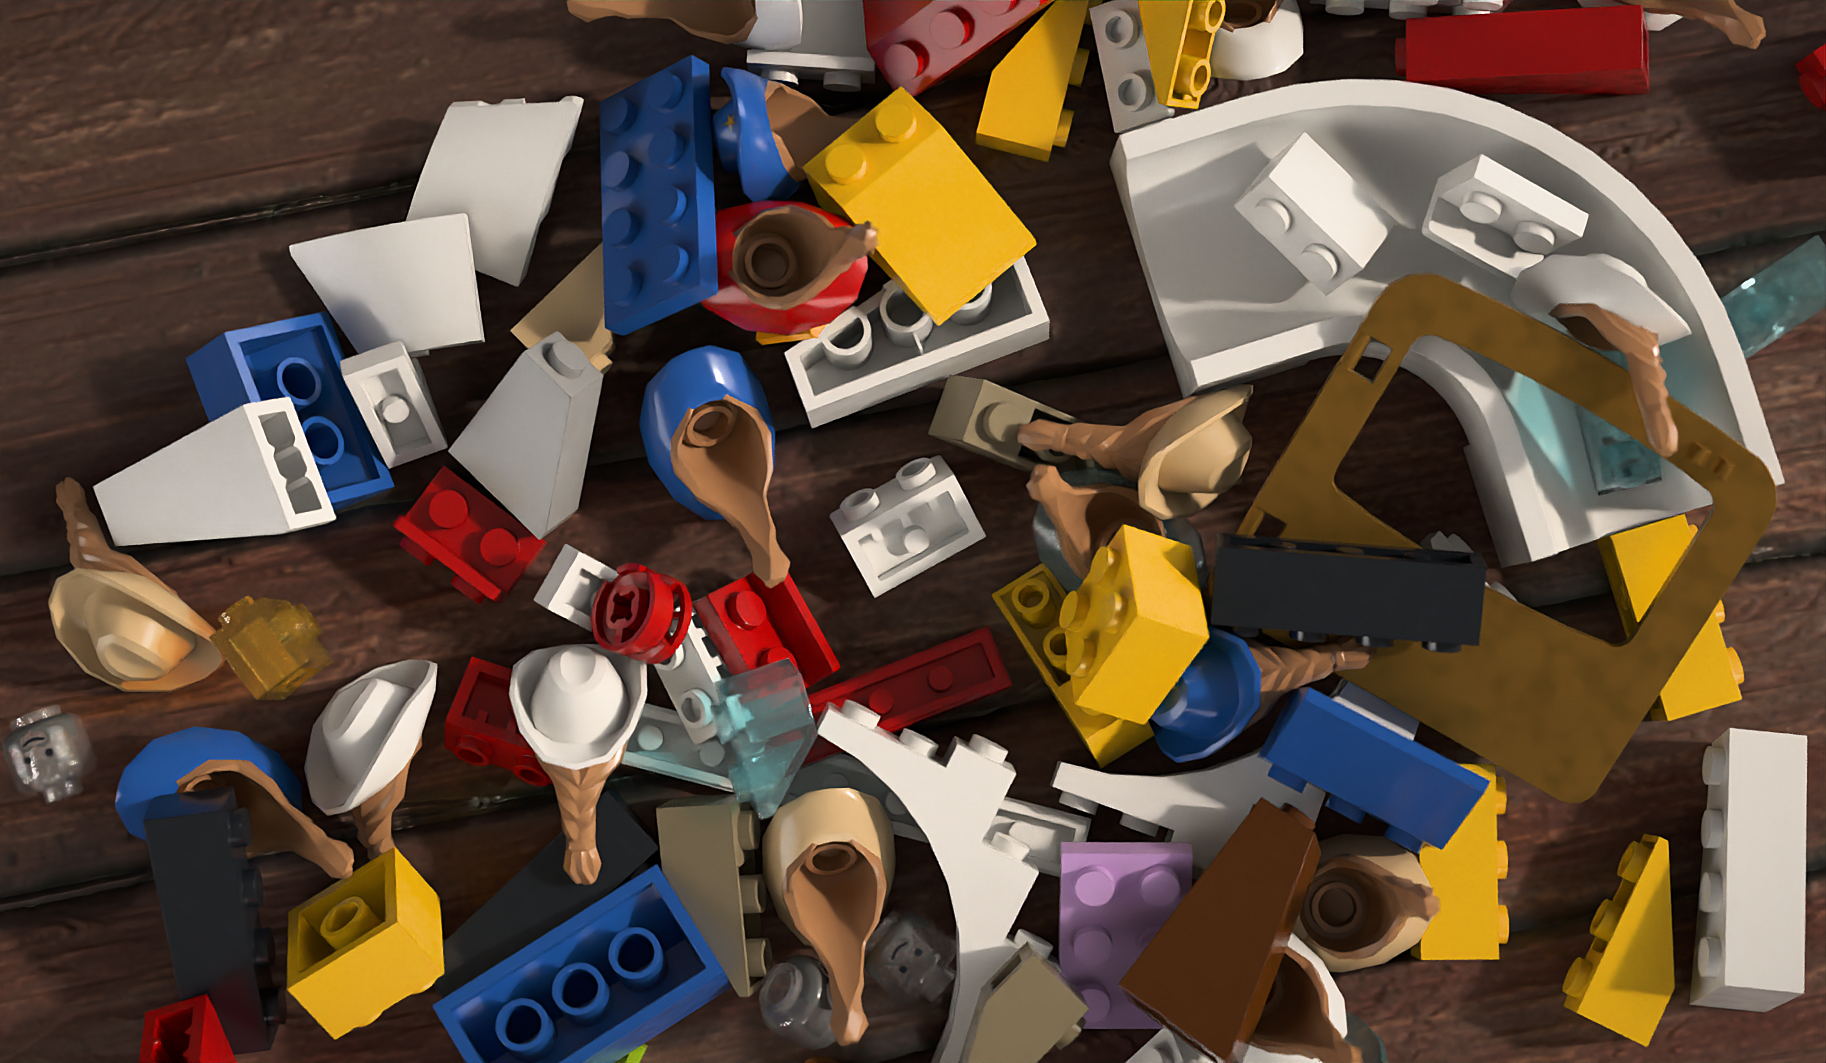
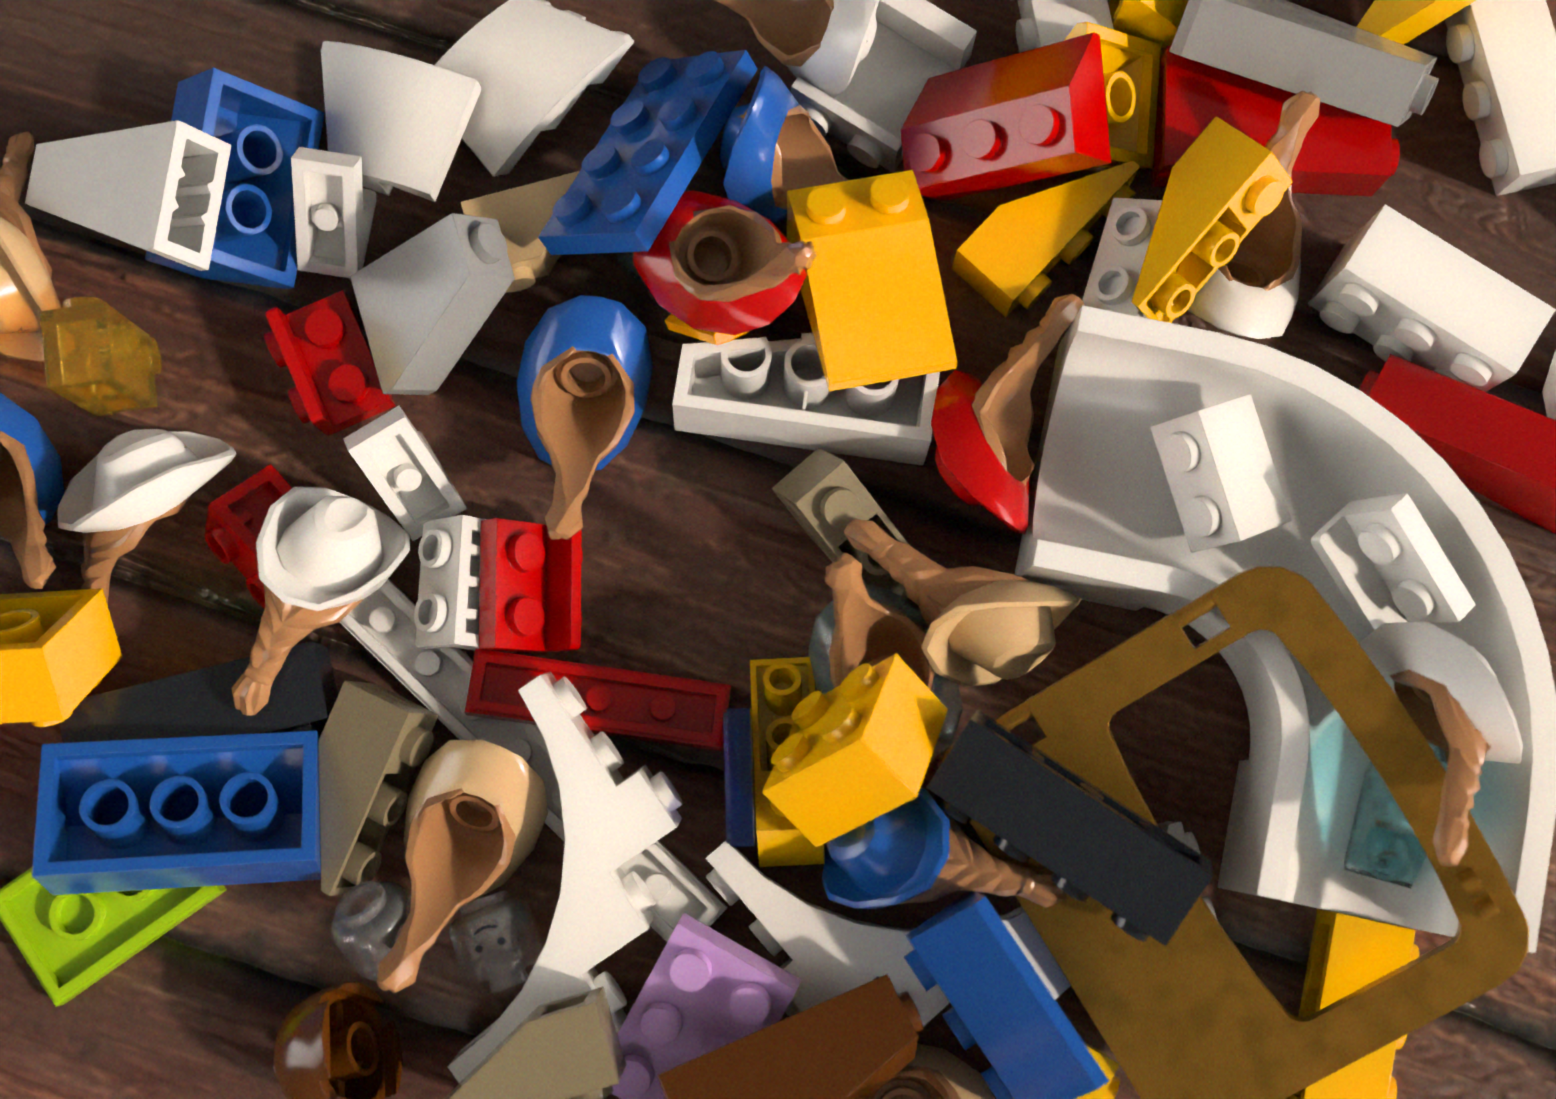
camera: 30 degrees right, 5 degrees down
(637, 611) = (426, 500): red wheel -> none
(769, 729) = (478, 665): clear light blue slope -> none
(907, 524) = (708, 556): white bracket -> none
(1045, 703) = (739, 777): none -> clear blue tile
(1089, 277) = (987, 425): none -> hat

